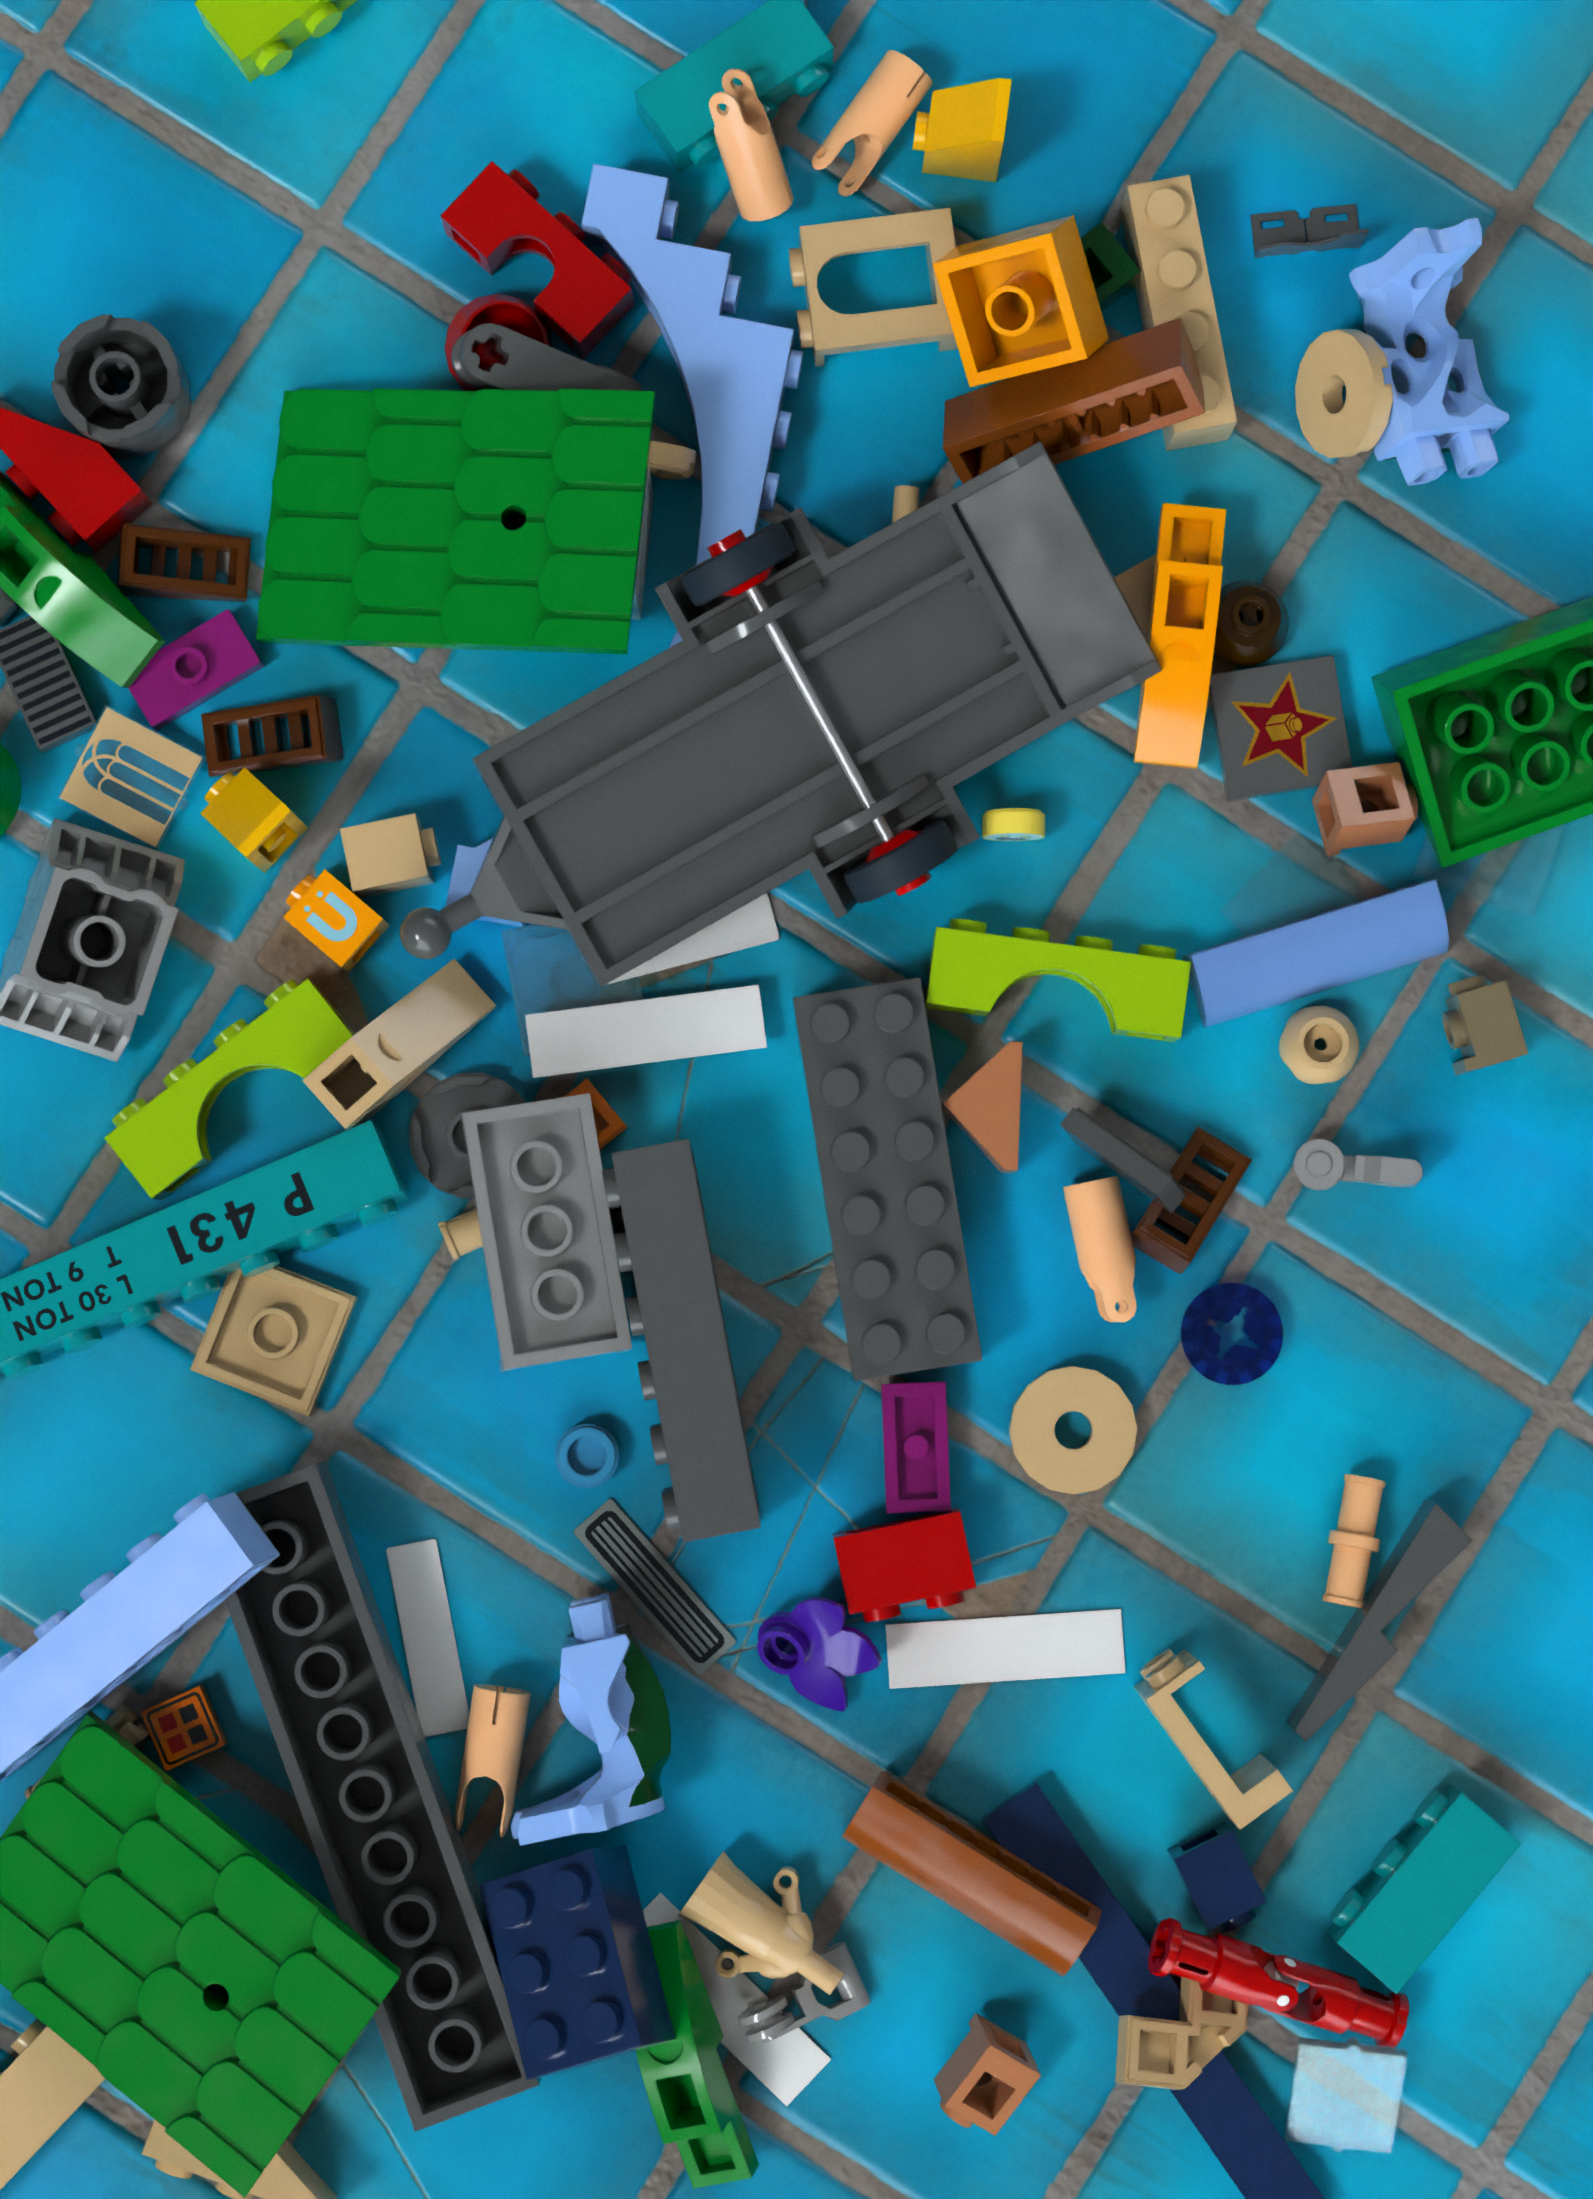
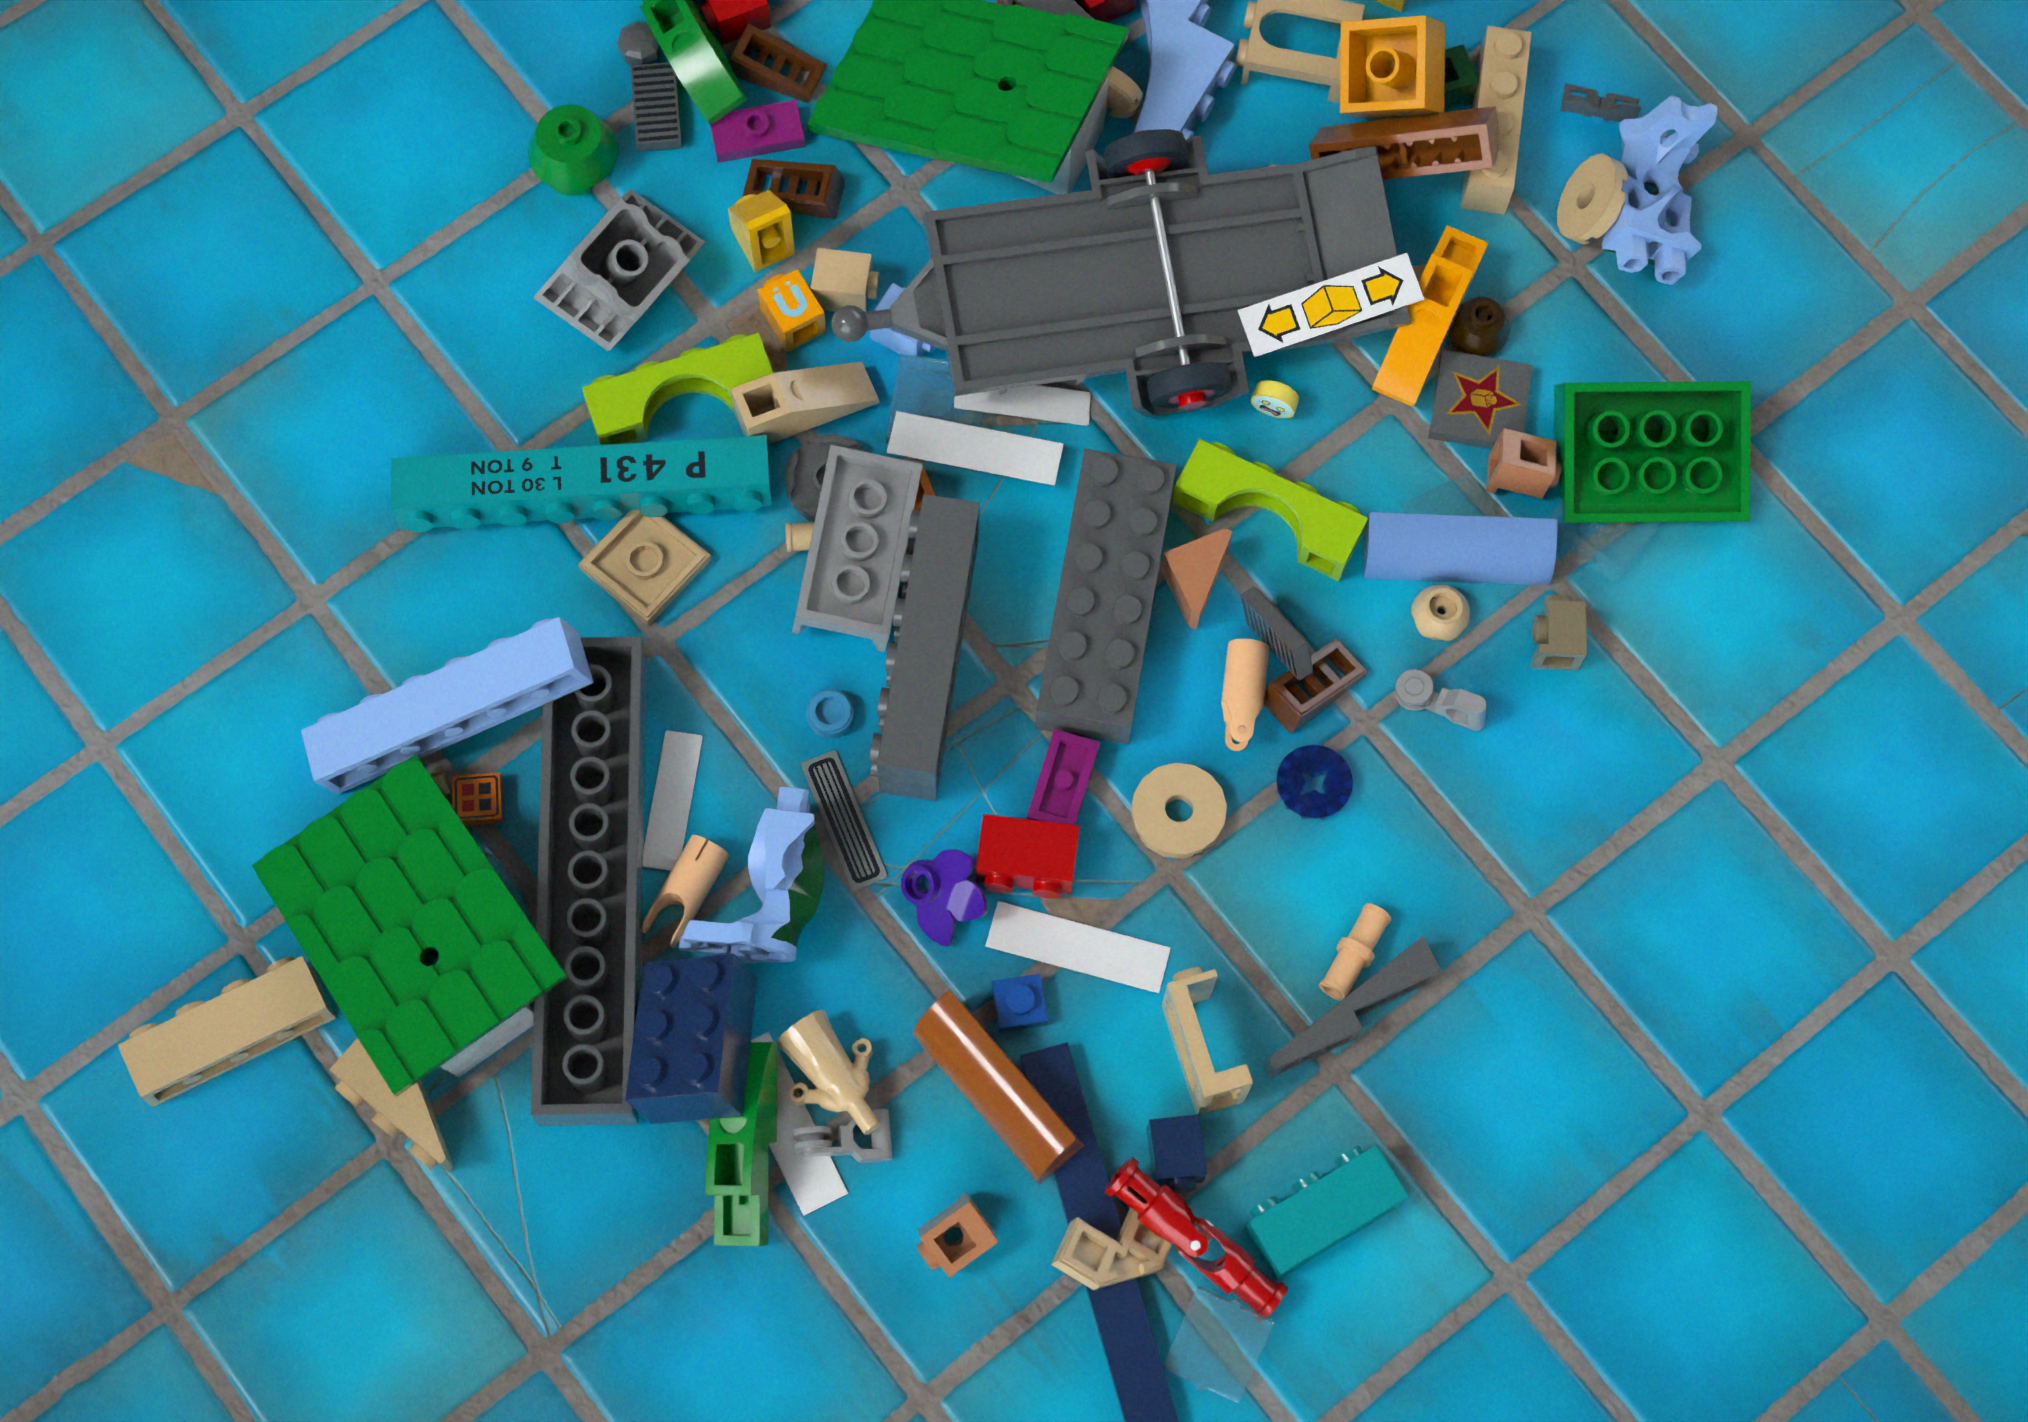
camera: 20 degrees right, 15 degrees down
(131, 777) = (690, 181): piece -> none
(958, 1750) = (1019, 1003): none -> blue plate
(1049, 682) = (1330, 304): none -> sticker

